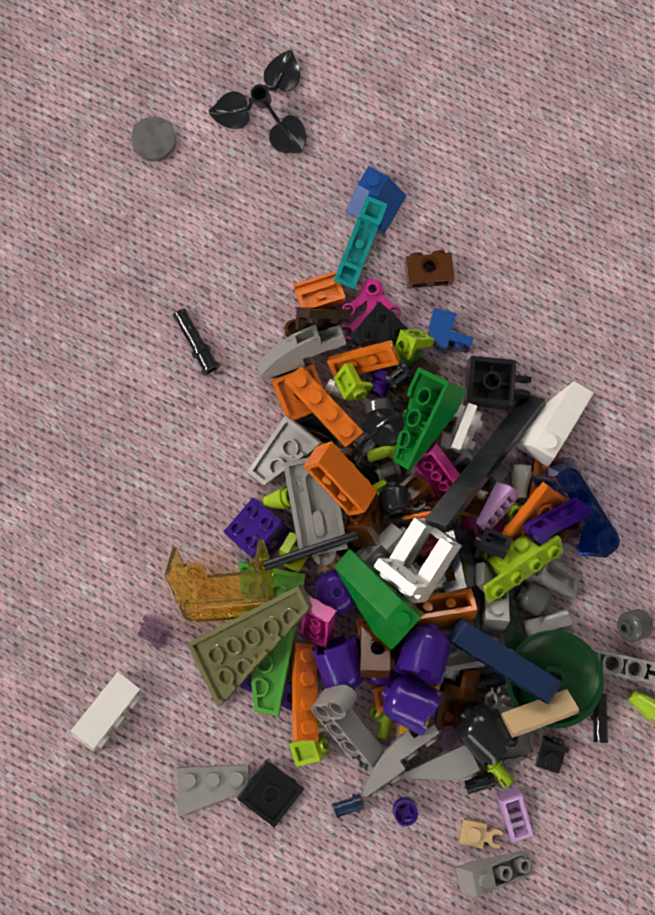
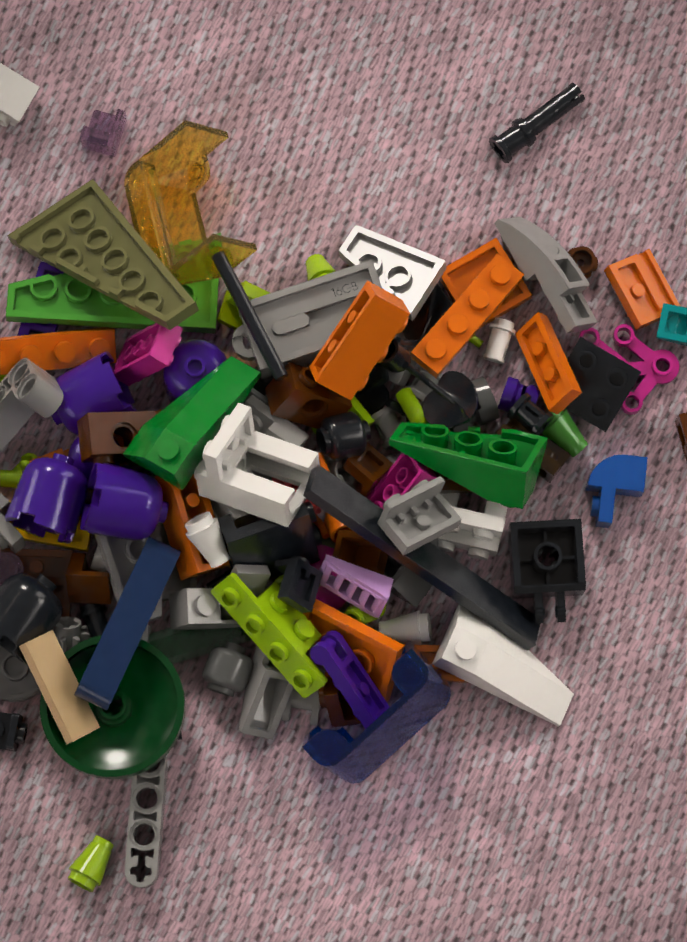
camera: 85 degrees right, 5 degrees down
(257, 523) = (279, 251): dark purple bracket -> none
(320, 316) = (603, 293): dark brown bracket -> none
(350, 383) = (507, 349): lime bracket -> none
(411, 340) = (592, 432): lime bracket -> none
(455, 601) = (207, 538): none -> white cone
(466, 458) = (418, 516): none -> light grey bracket
(554, 621) = (199, 709): light grey piece -> none
(600, 721) = (63, 796): black pin -> none
(635, 625) = (210, 828): dark grey head -> none

